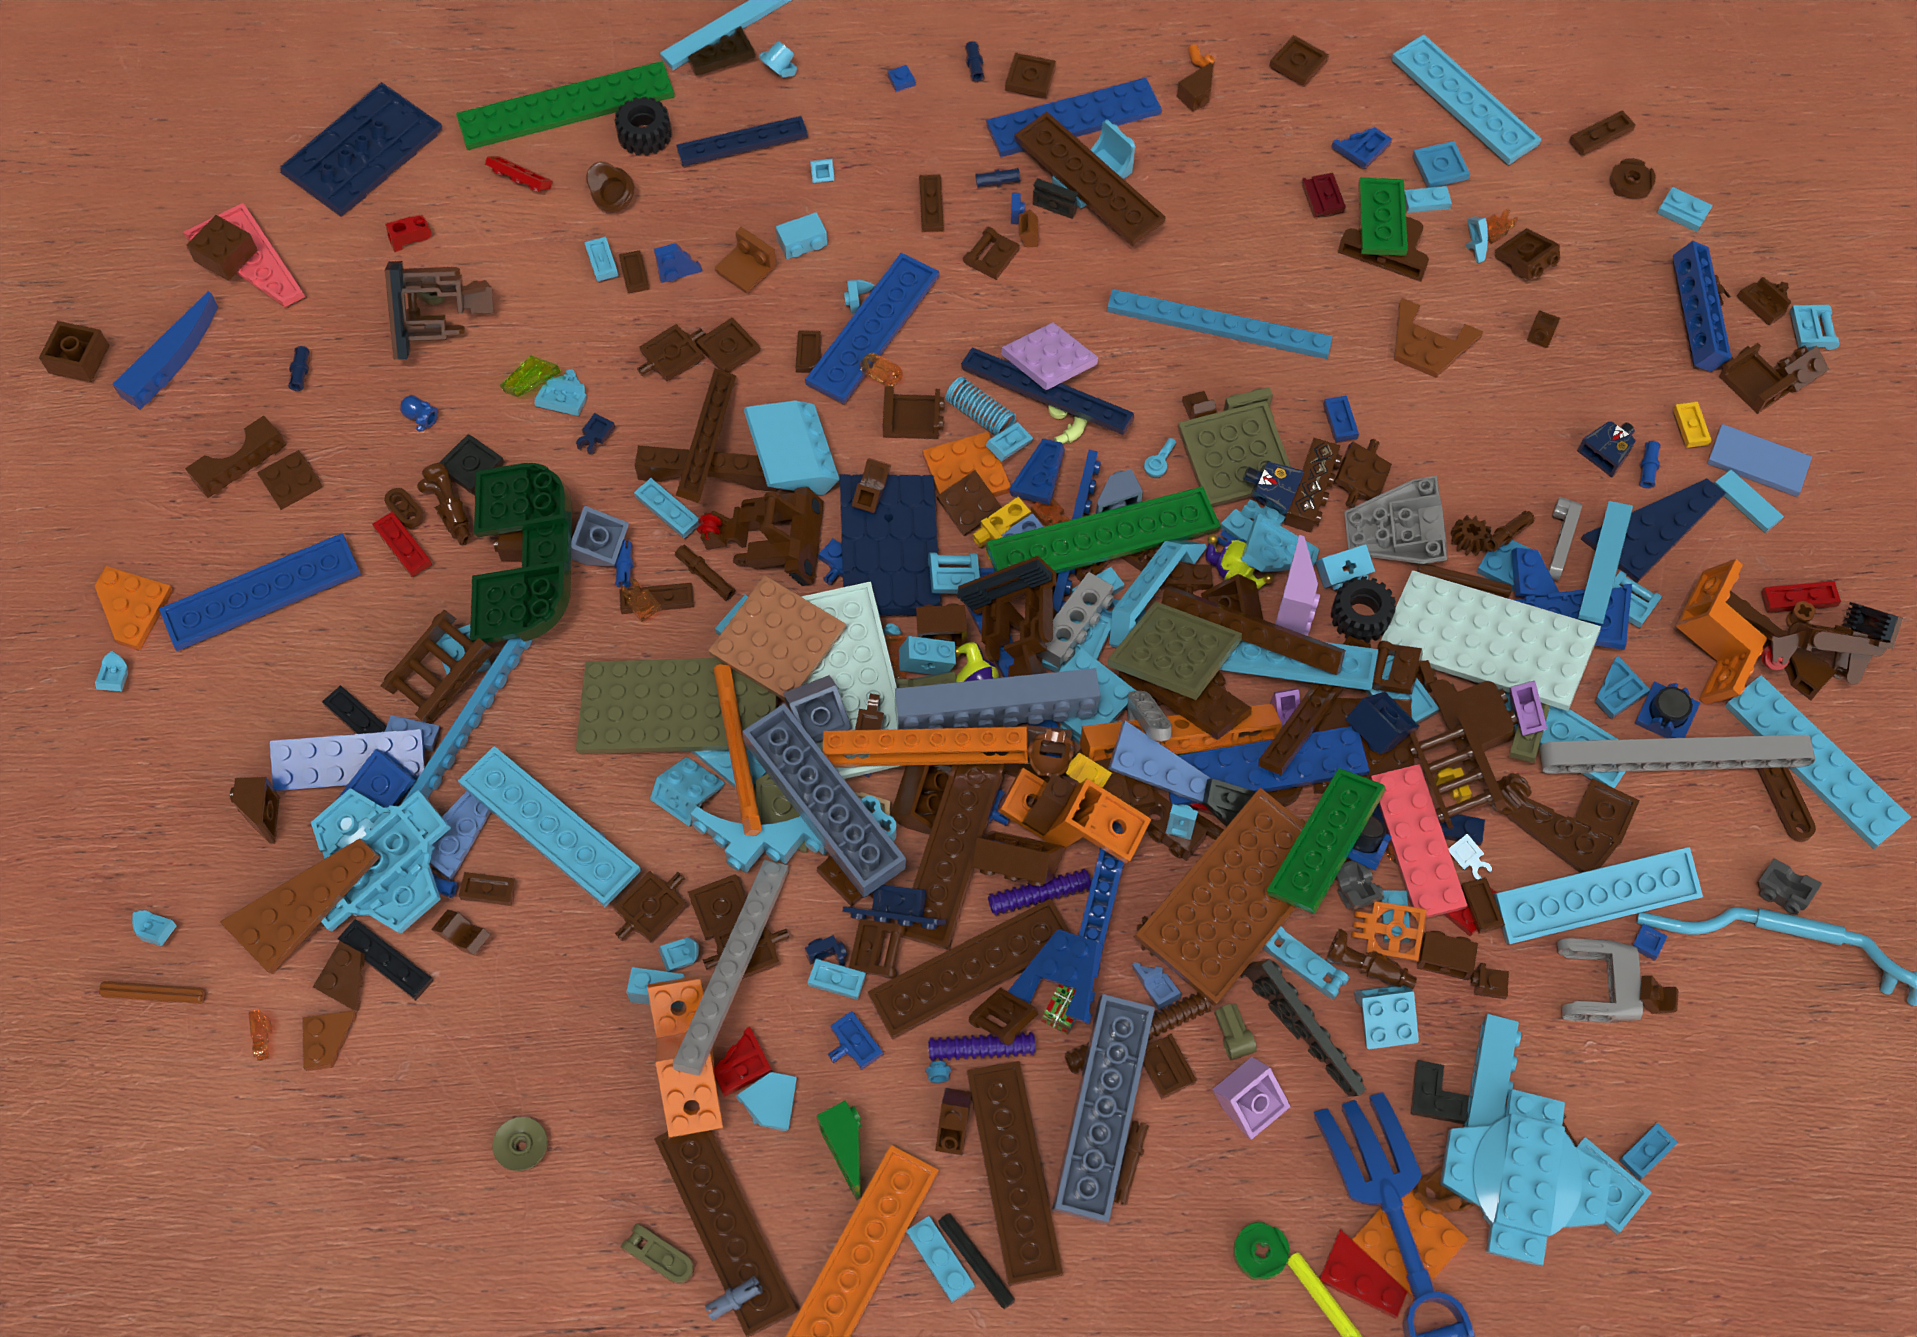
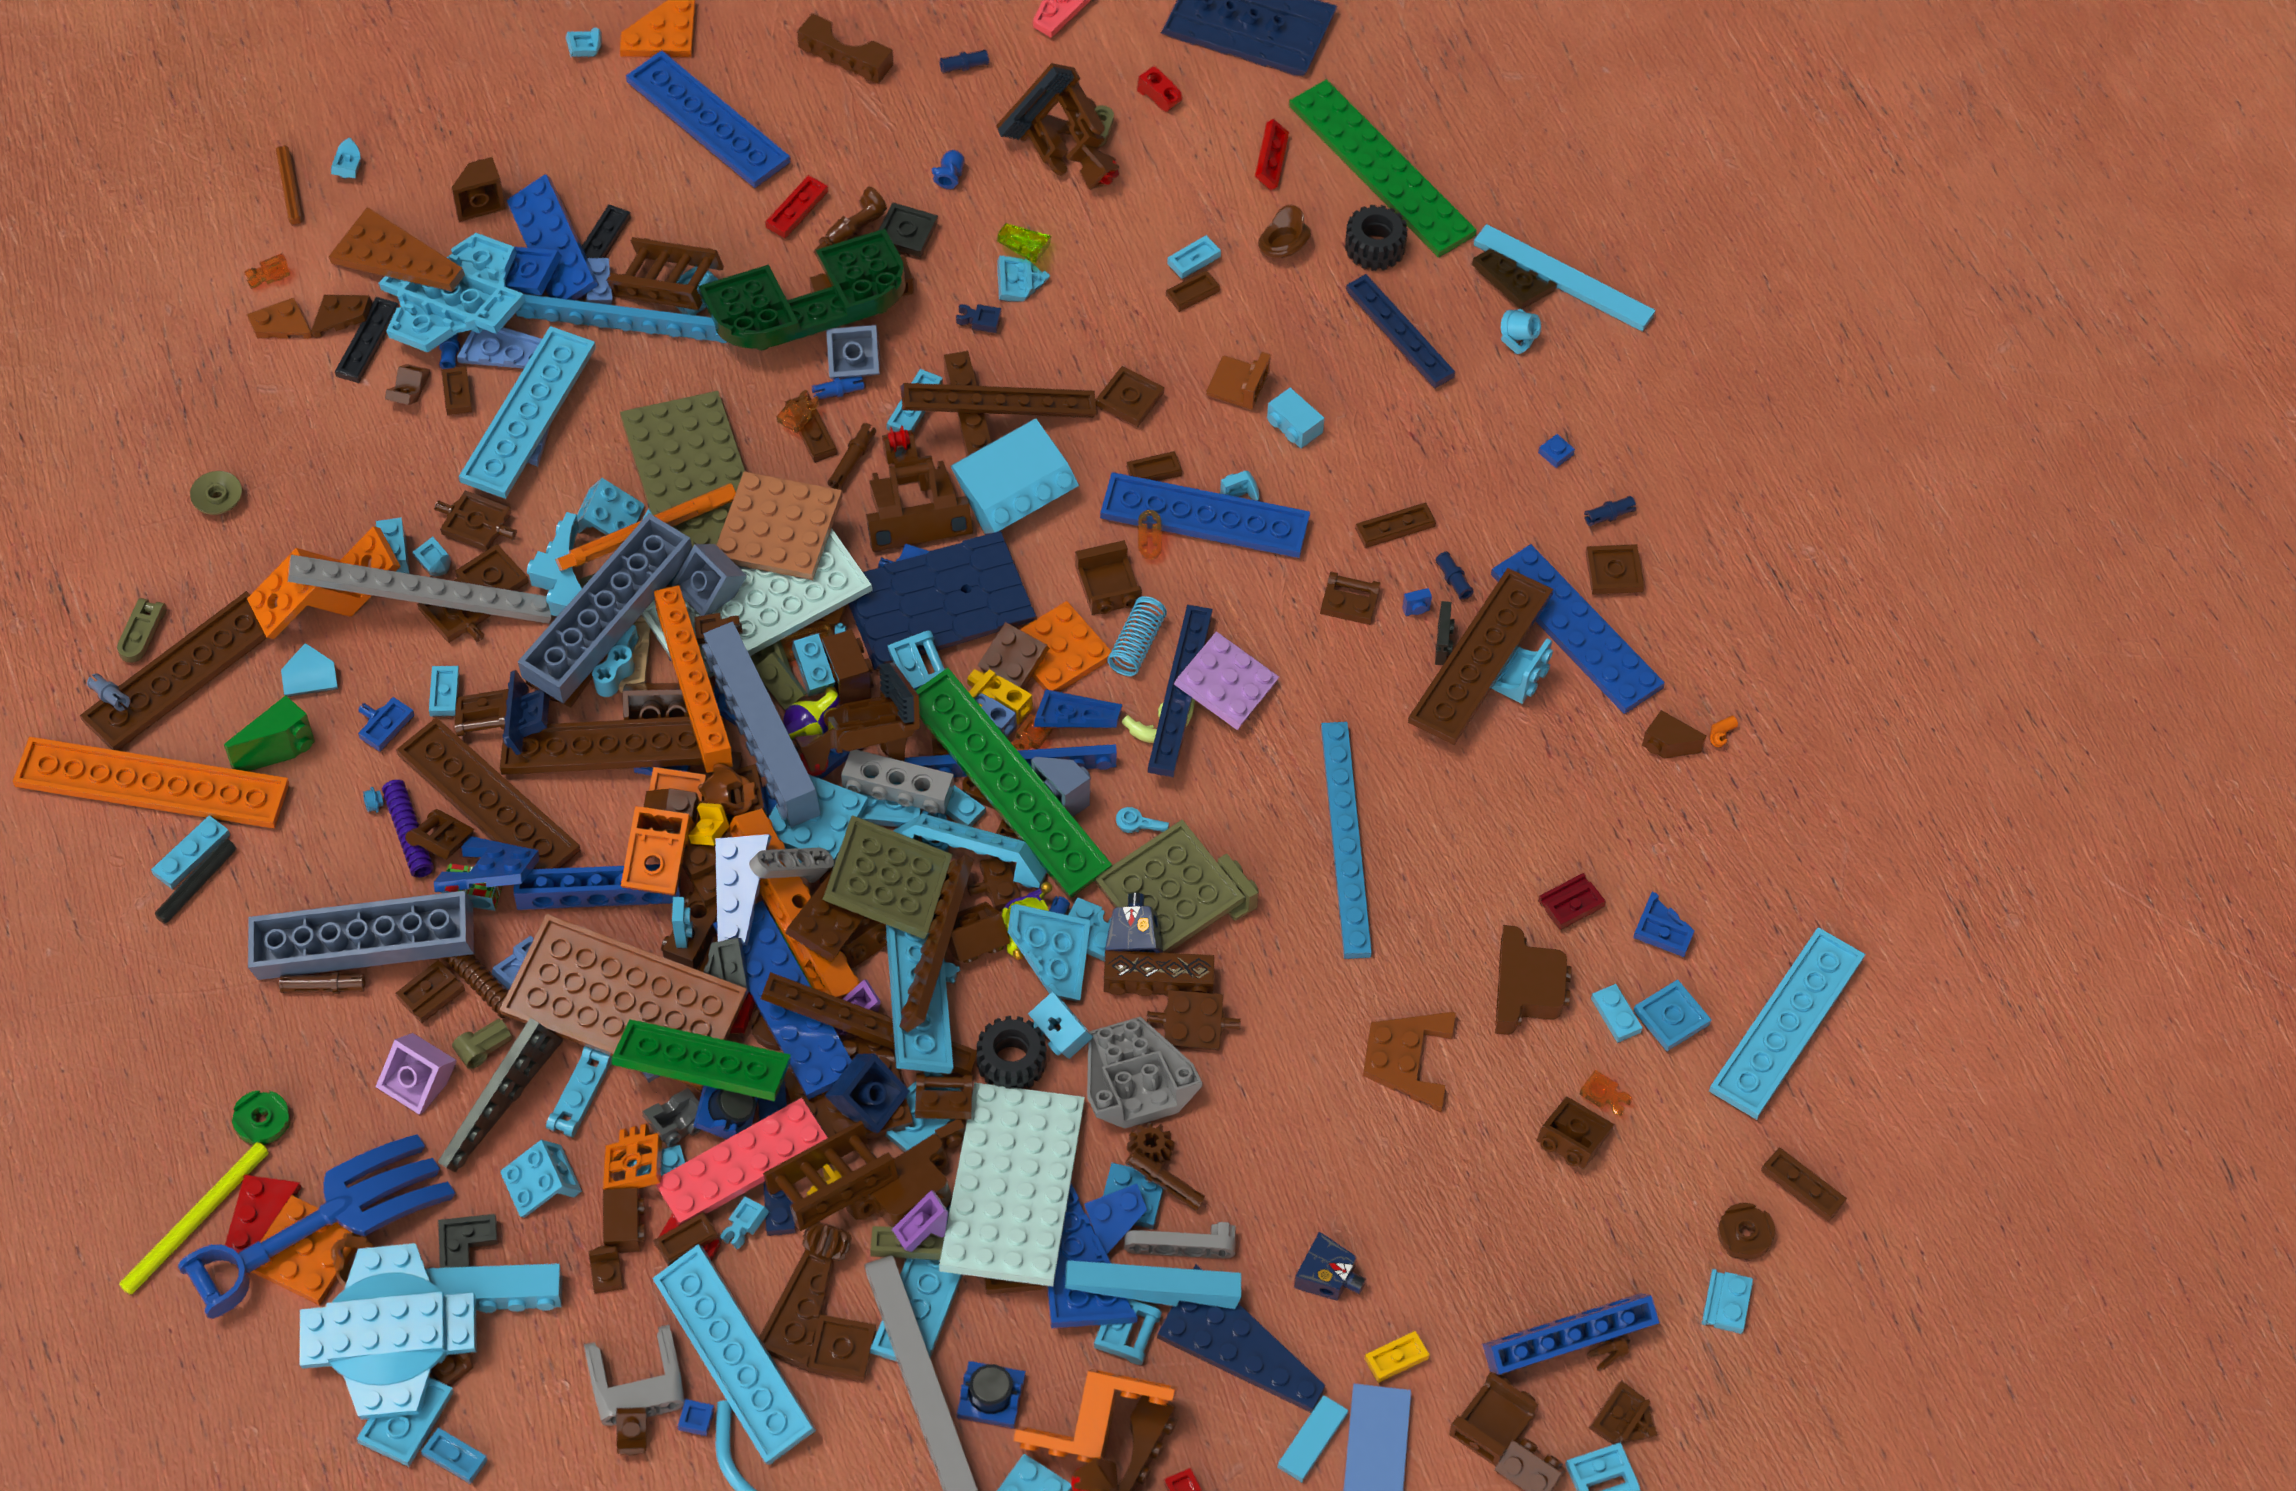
camera: 70 degrees right, 5 degrees down
(289, 479) = (838, 99): reddish brown plate -> none
(405, 509) = (835, 196): reddish brown plate -> none
(671, 352) = (1102, 350): reddish brown plate -> none
(674, 263) = (1206, 316): blue wing -> none
(742, 1064) = (338, 640): red wing -> none
(822, 170) = (1393, 413): medium azure slope -> none
(825, 948) = (472, 673): dark blue bracket -> none
(872, 485) = (986, 560): reddish brown slope -> none
(953, 1121) = (326, 822): reddish brown slope -> none
(1009, 441) = (1103, 673): medium azure plate -> none
(1014, 1174) = (289, 886): reddish brown plate -> none
(1017, 857) = (610, 798): reddish brown slope -> none
(1029, 220) = (1394, 622): dark orange piece -> none
(1032, 894) = (582, 830): dark purple piece -> none
(1198, 405) = (1222, 841): reddish brown slope -> none
(1298, 60) = (1764, 832): reddish brown plate -> none
(1299, 594) = (986, 966): lavender slope -> none
(1341, 418) = (1260, 984): blue plate -> none
(1373, 964) = (587, 1146): reddish brown piece -> none
(1382, 216) = (1547, 955): green plate -> none
(1479, 237) = (1568, 1078): medium azure slope -> none
(1479, 583) = (1092, 1153): reddish brown axle -> none
(1543, 329) = (1474, 1169): reddish brown bracket -> none
(1620, 689) = (1002, 1337): dark azure wing -> none
(1650, 464) = (1321, 1319): blue pin -> none

